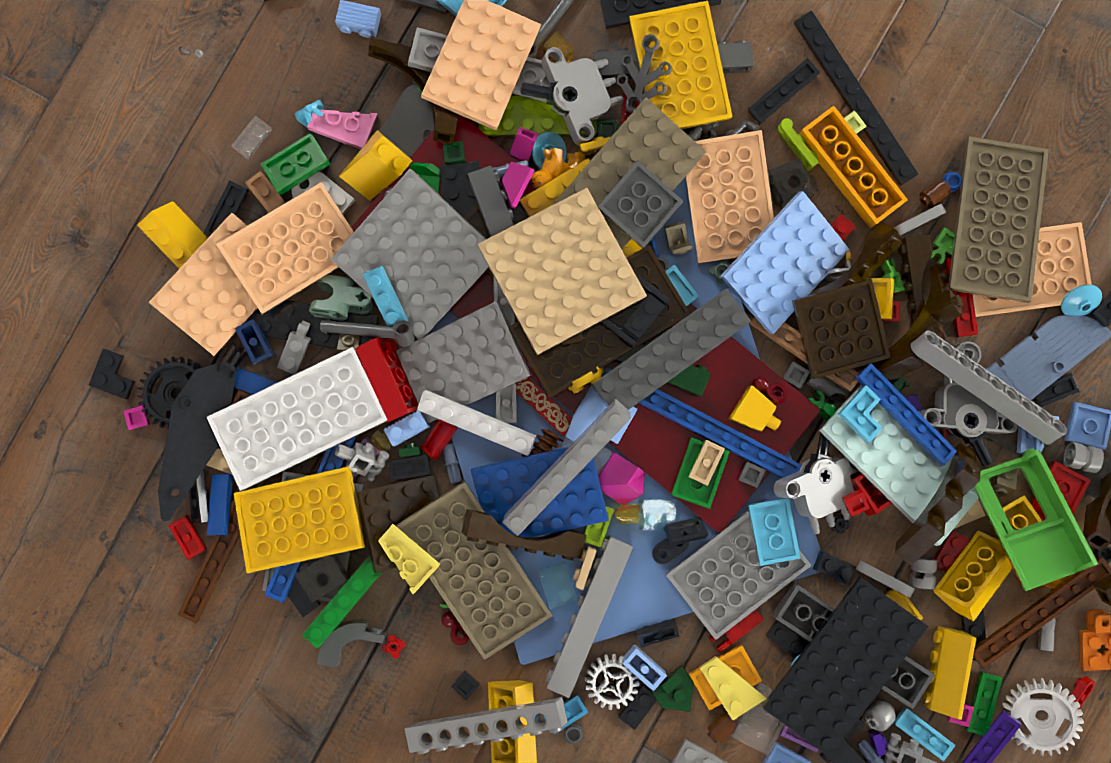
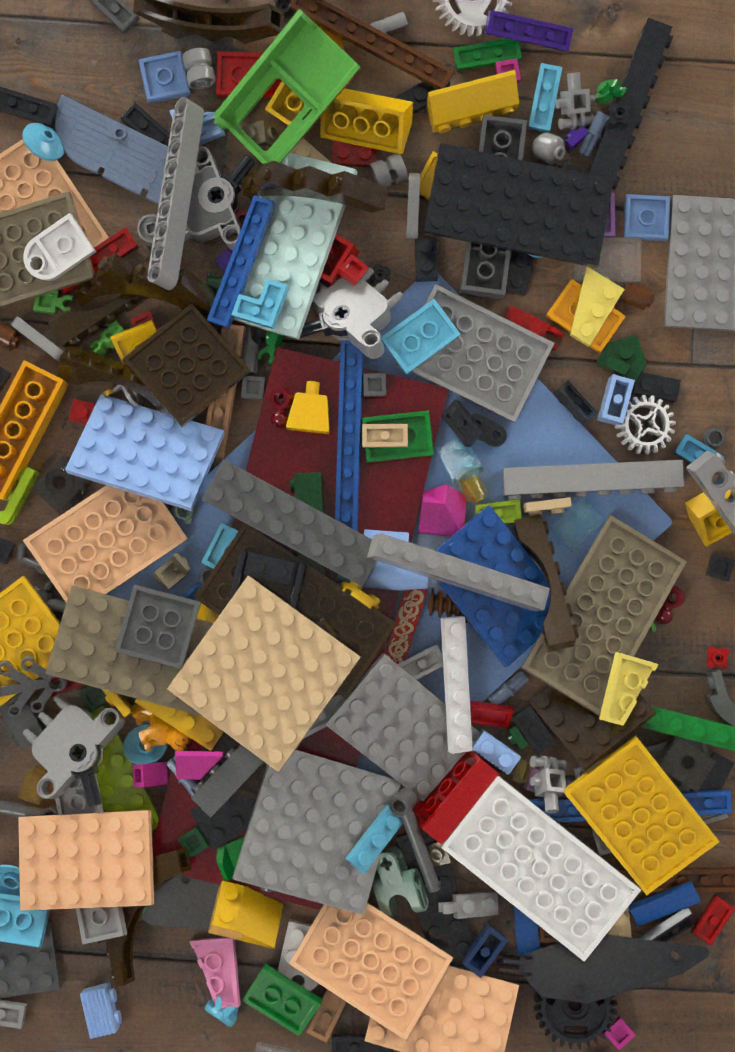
camera: 115 degrees left, 0 degrees up
(987, 272) = (59, 247): none -> white plate

